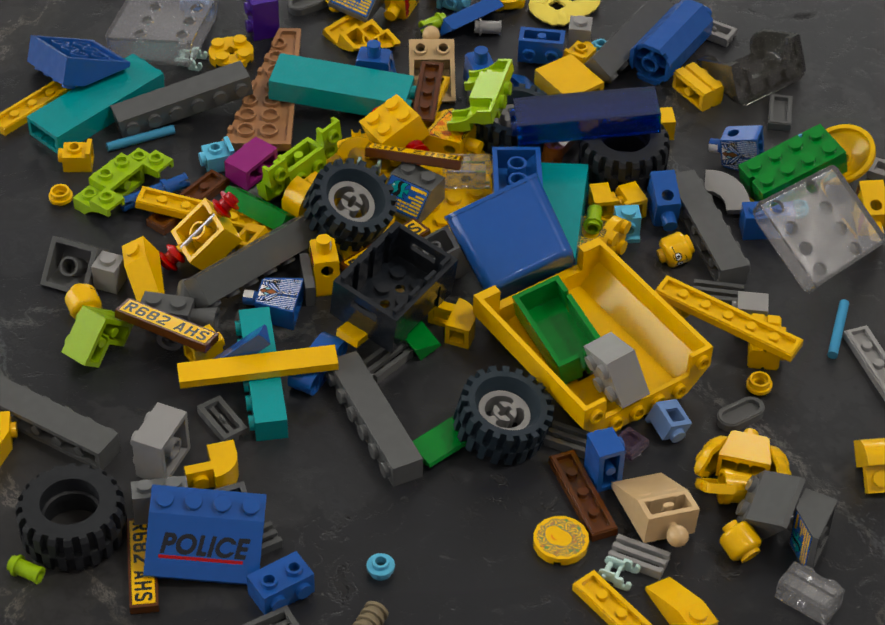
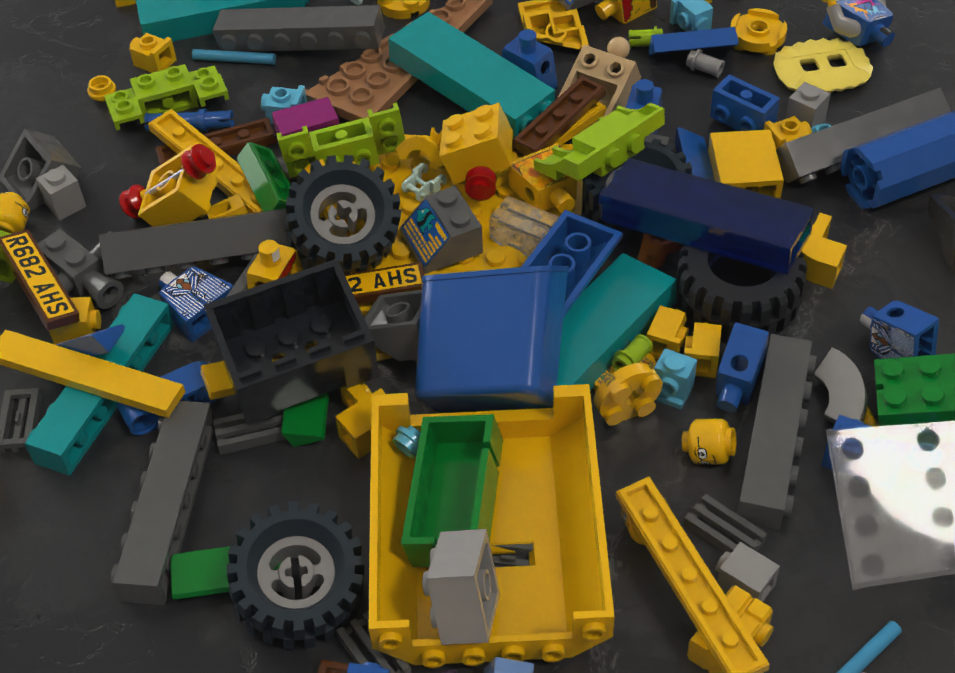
camera: 35 degrees right, 5 degrees up
(143, 267) = (88, 202): yellow slope -> none
(414, 156) = (463, 186): reddish brown tile -> none
(509, 315) = (407, 440): none -> medium azure plate
(698, 86) = (911, 231): yellow brick -> none

